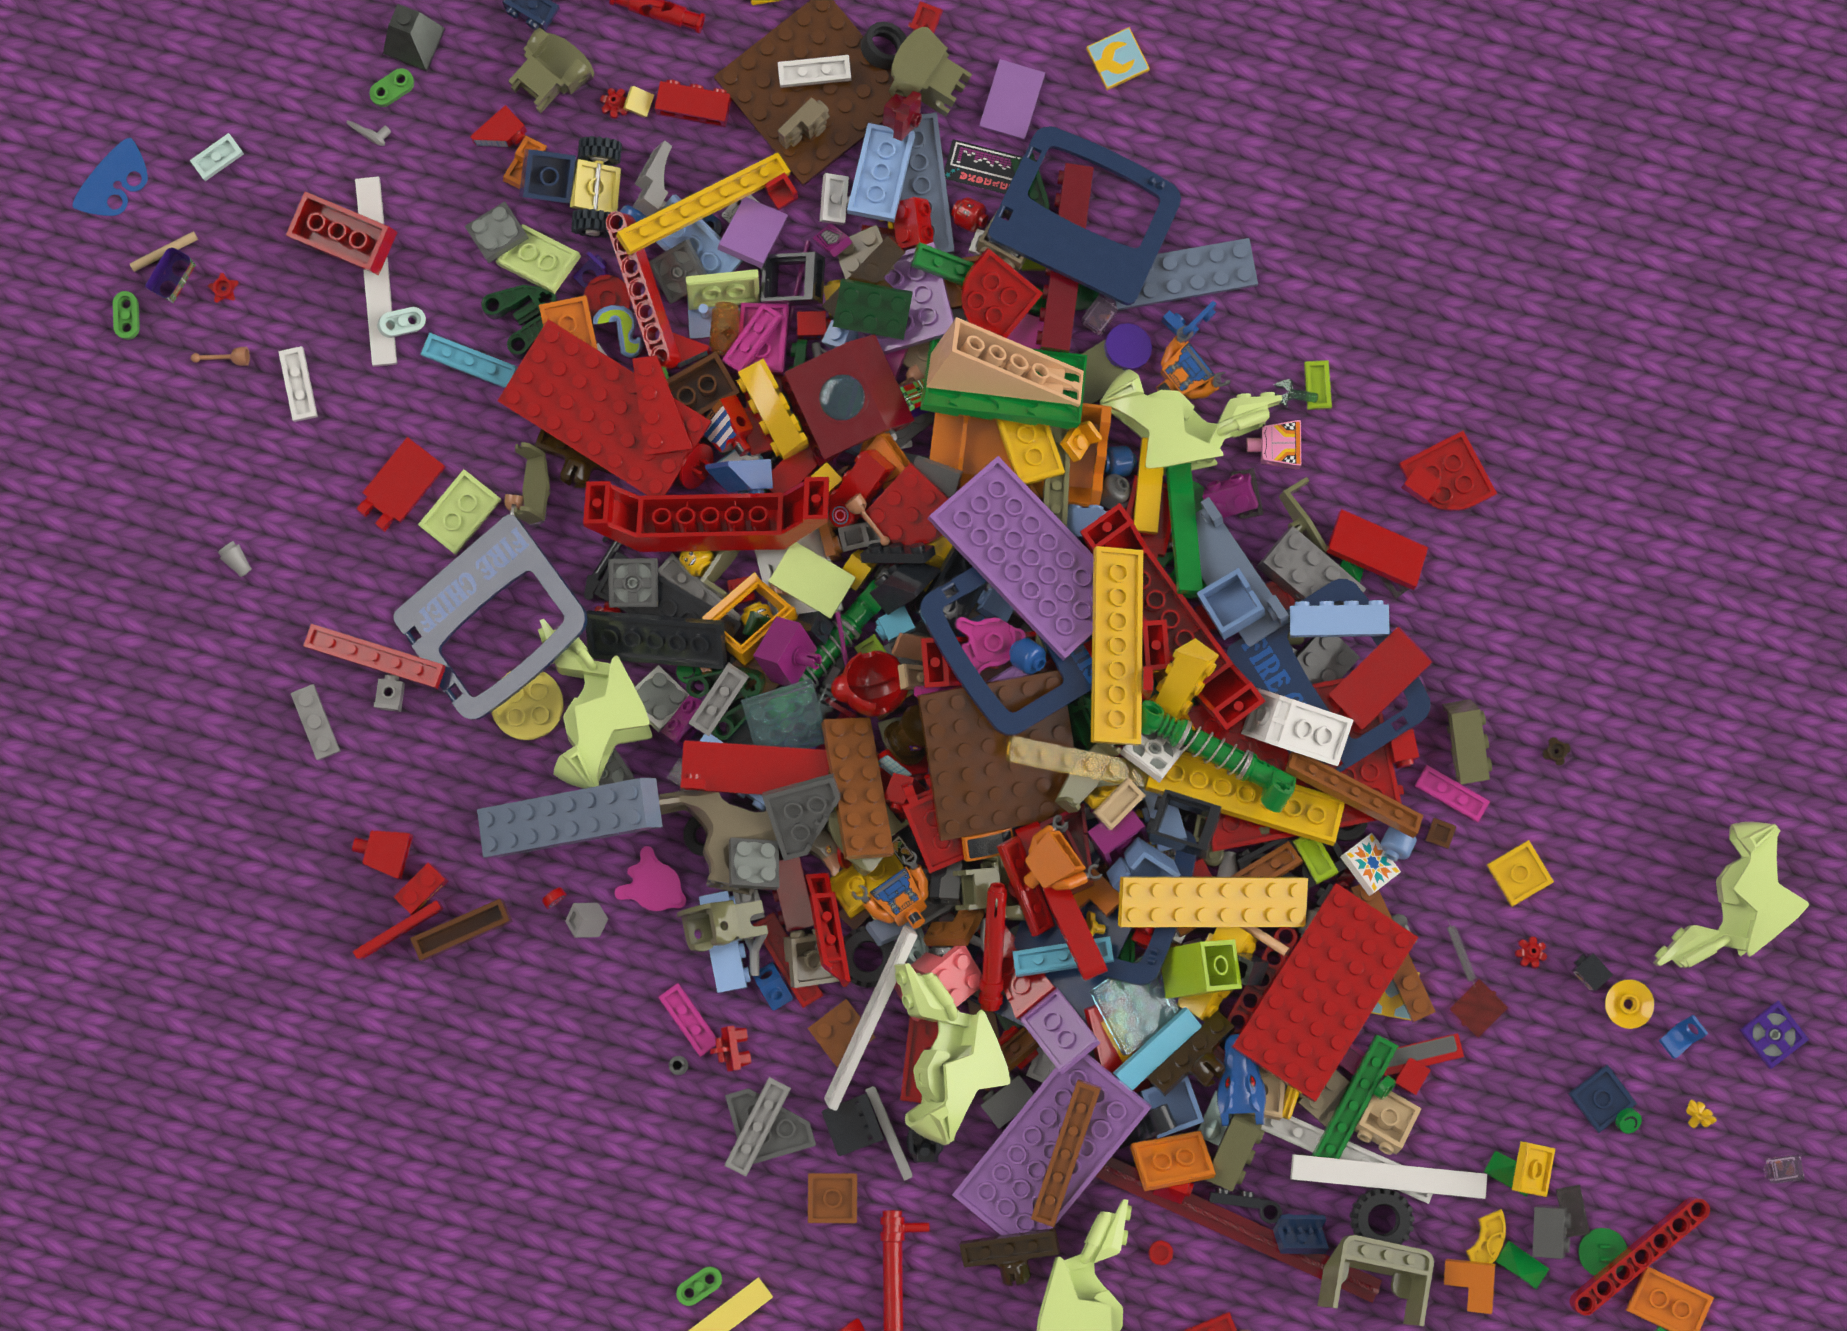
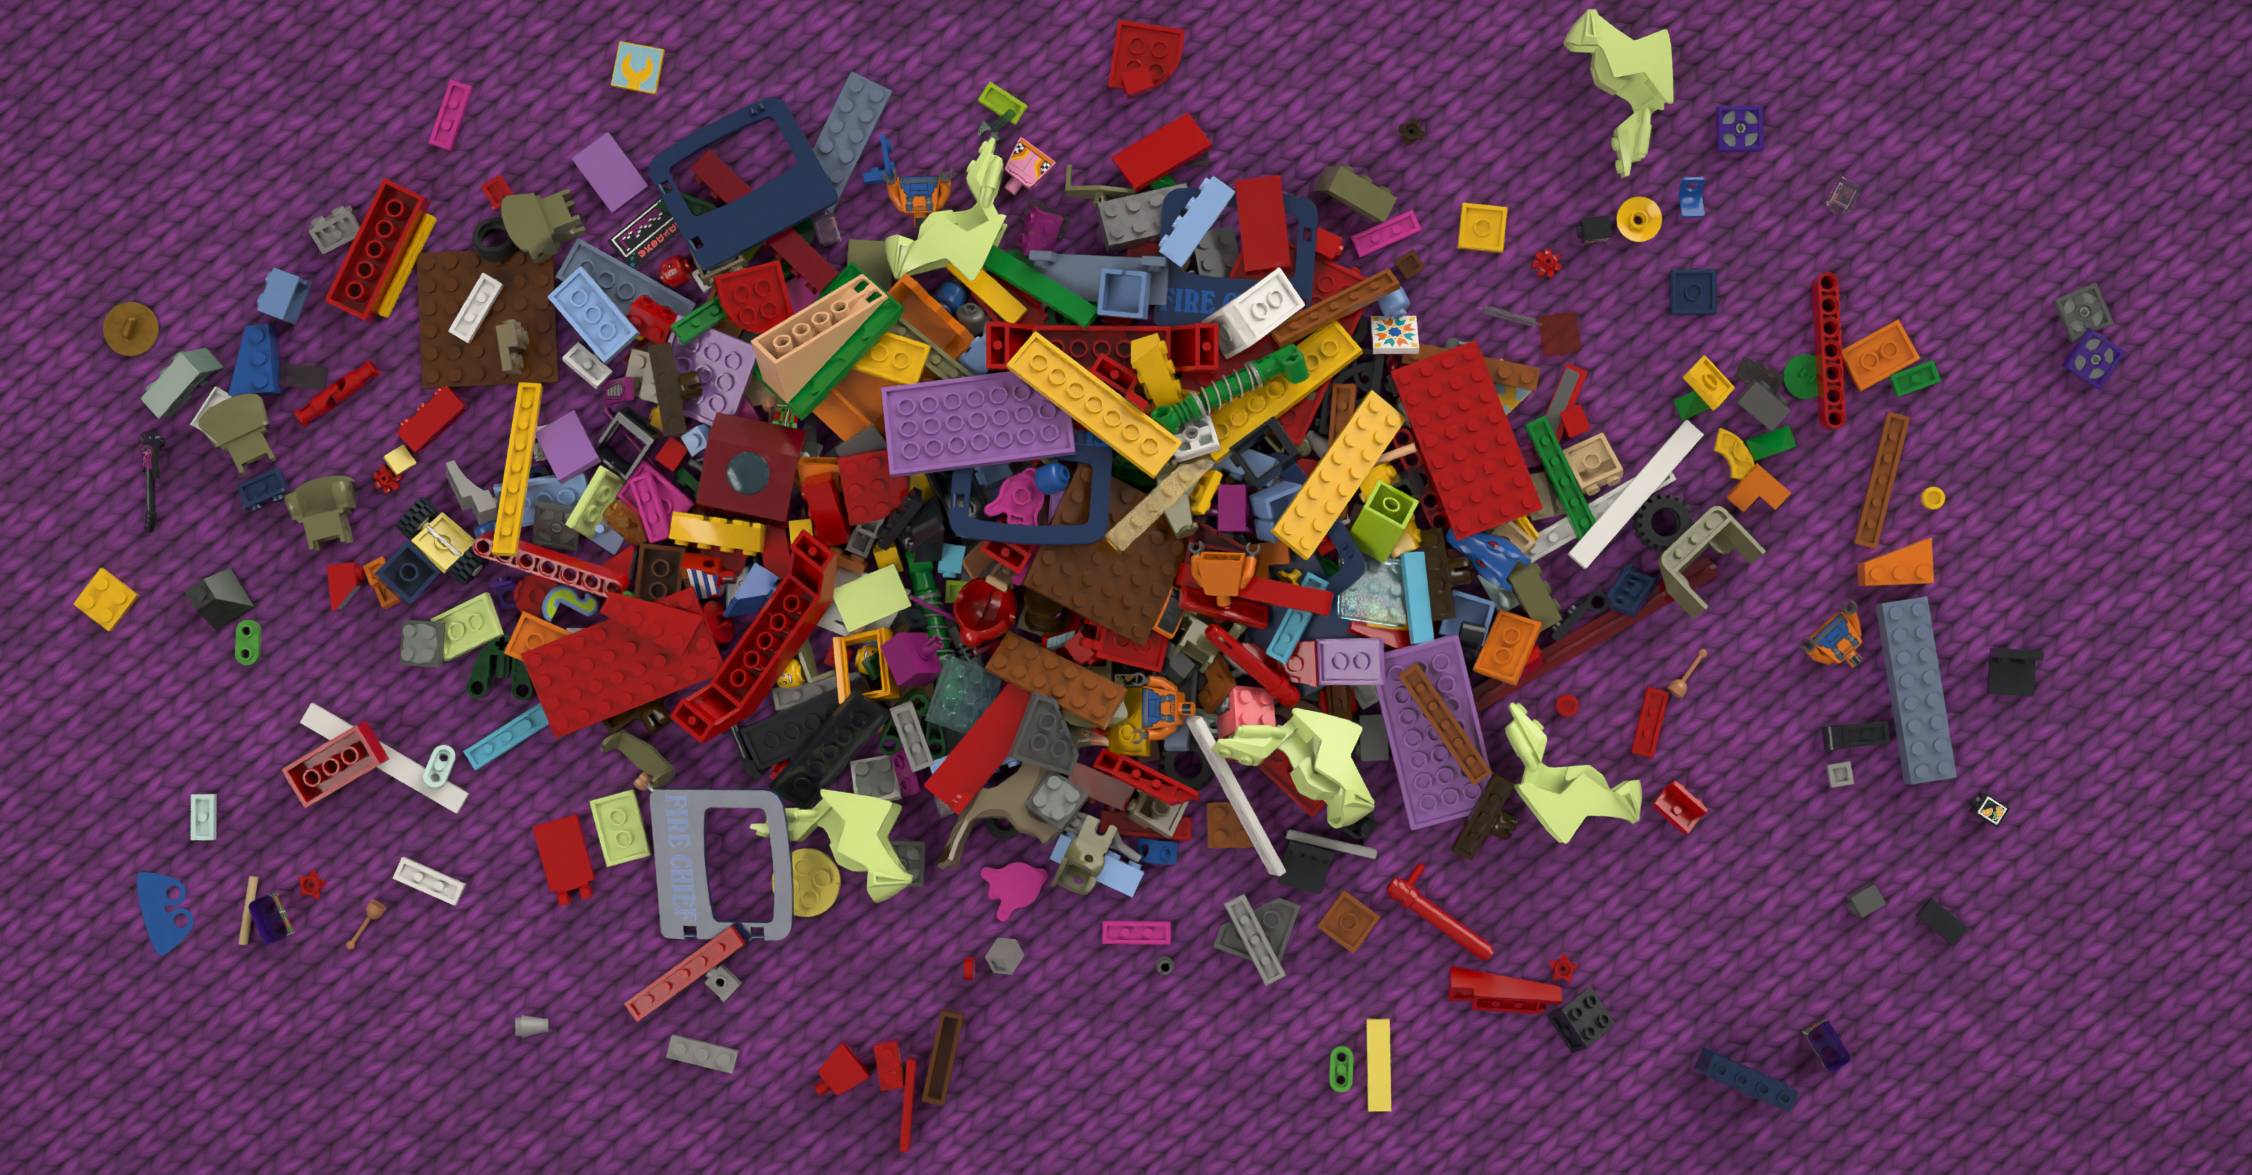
camera: 50 degrees left, 5 degrees up
(126, 316) = (278, 976): bright green plate -> none
(377, 138) = (278, 683): light grey bar -> none
(570, 817) = (919, 914): sand blue brick -> none
(633, 582) = (773, 735): dark grey piece -> none
(686, 672) = (872, 745): green tile -> none
(728, 1050) = (1182, 920): red hips -> none
(781, 191) = (551, 401): red panel -> none
(840, 515) = (838, 539): red tile -> none
(857, 505) = (840, 522): nougat hinge -> none
(872, 309) = (696, 399): dark green plate -> none
(902, 114) = (560, 265): dark red brick -> none
(1079, 439) = (913, 317): light orange bracket -> none
(1118, 803) = (1214, 491): tan tile -> none
(1128, 346) = (867, 225): dark purple tile -> none
(1316, 859) = (1361, 373): lime tile -> none
(1384, 1088) = (1569, 449): green tile -> none
(1628, 1120) = (1723, 284): green tile -> none
(1699, 1115) = (1758, 228): yellow plant -> none

